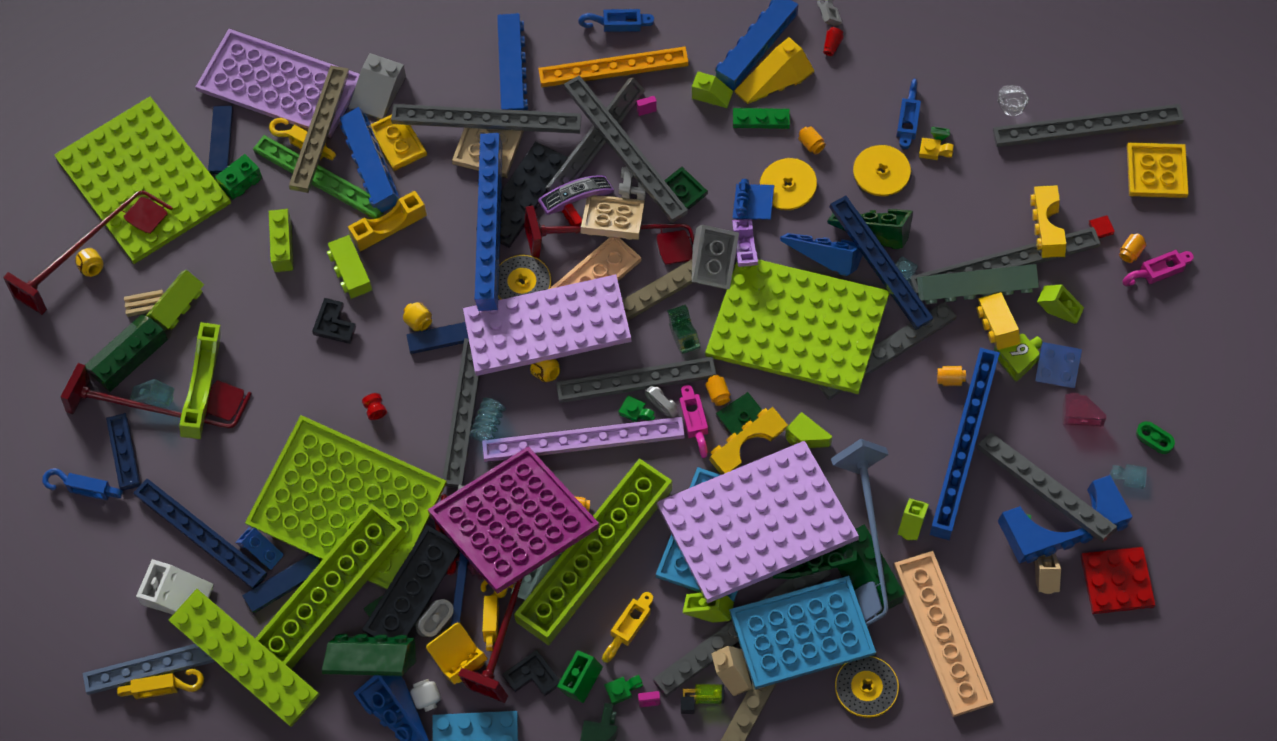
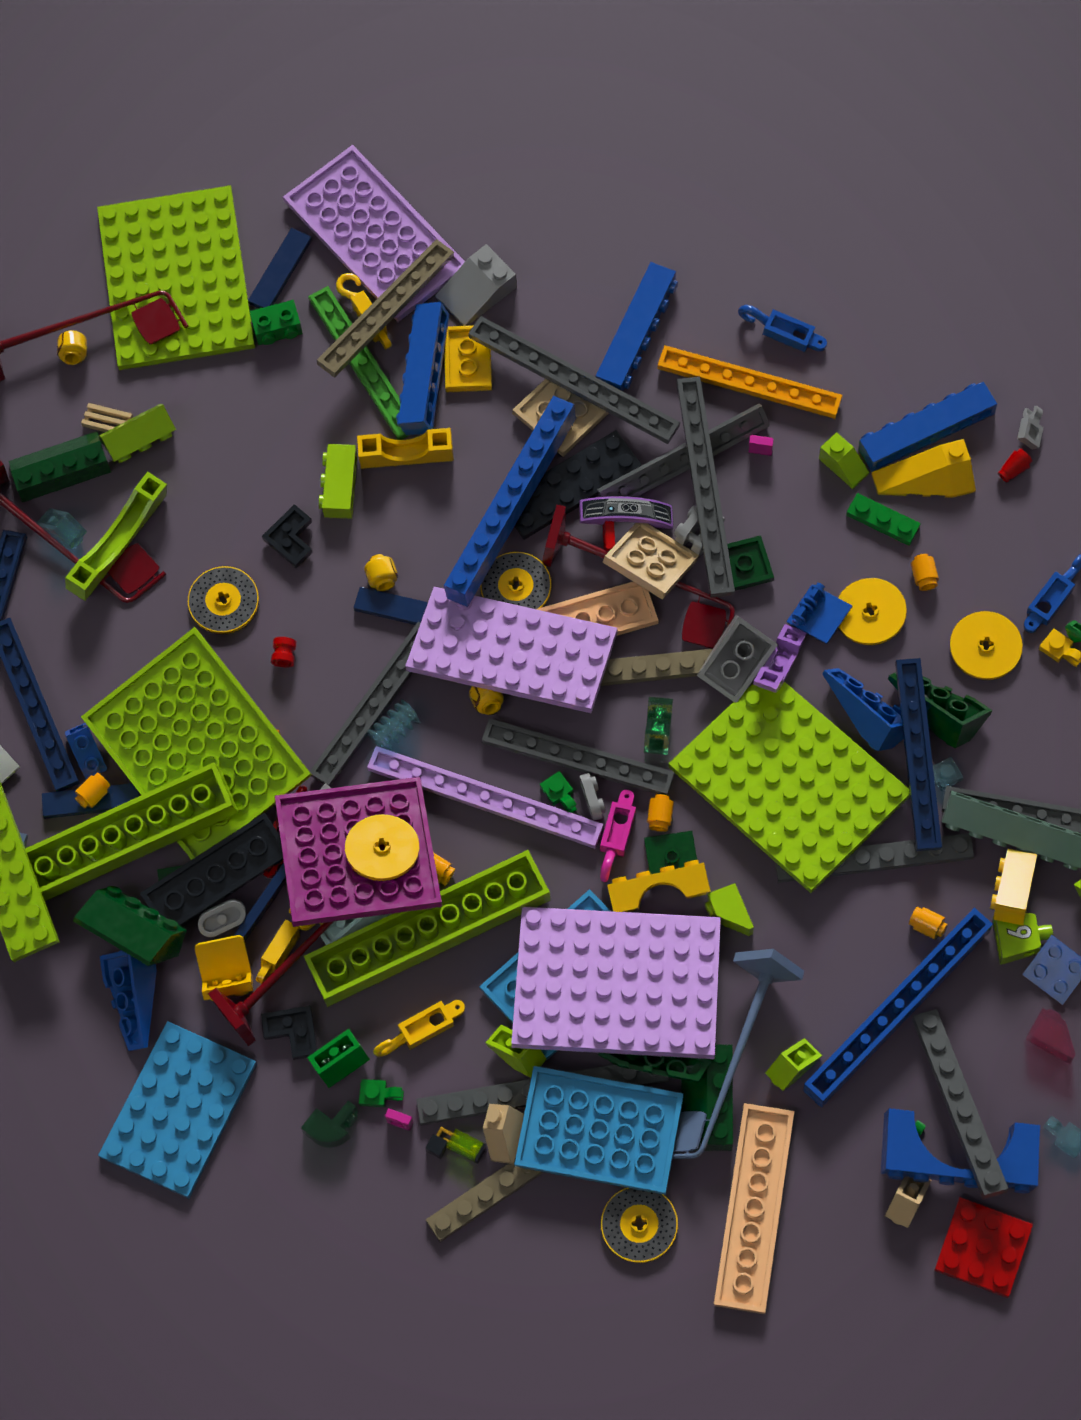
camera: 30 degrees right, 5 degrees up
(281, 240) = (282, 416): lime brick -> none
(282, 573) = (92, 791): none -> light orange brick
(306, 377) = (206, 605): none -> piece
(425, 695) = (170, 996): white head -> none
(537, 493) = (364, 852): none -> yellow piece

